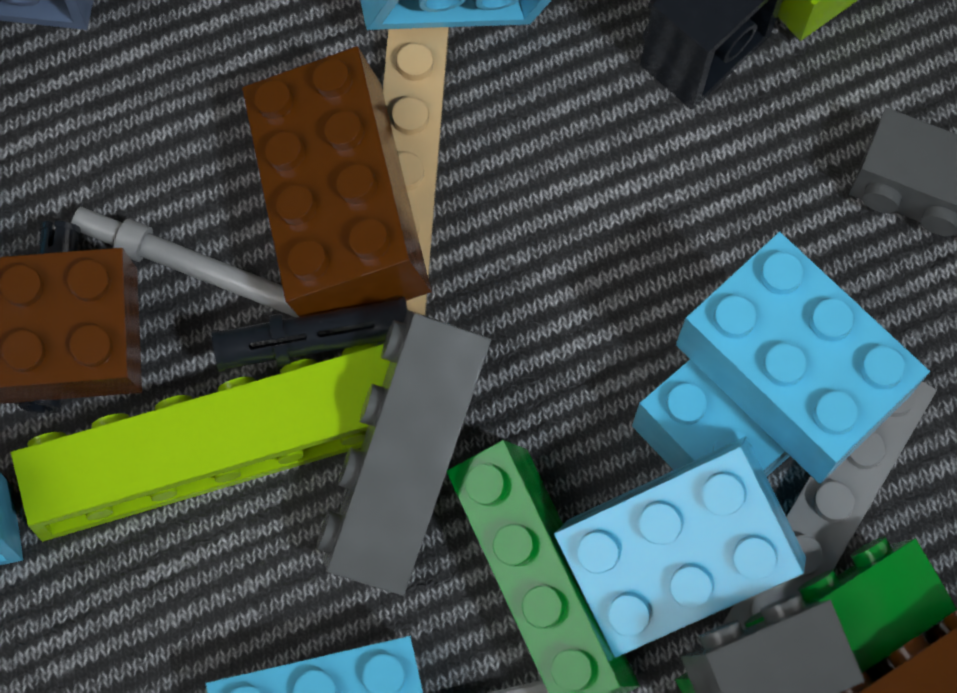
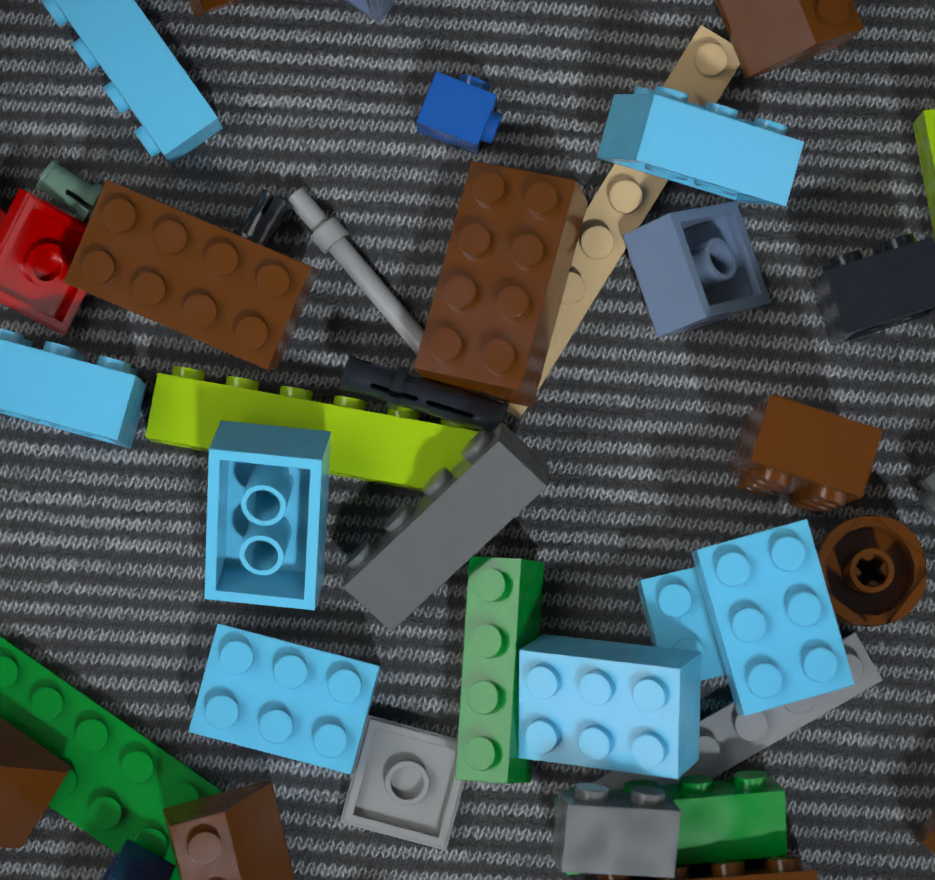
camera: 30 degrees right, 15 degrees up
(202, 536) = (267, 514): none -> medium azure brick
(207, 63) = (460, 112): none -> blue brick
(518, 94) = (696, 268): none -> sand blue slope
(735, 175) = (804, 455): none -> reddish brown brick
(881, 259) = (898, 567): none -> reddish brown brick

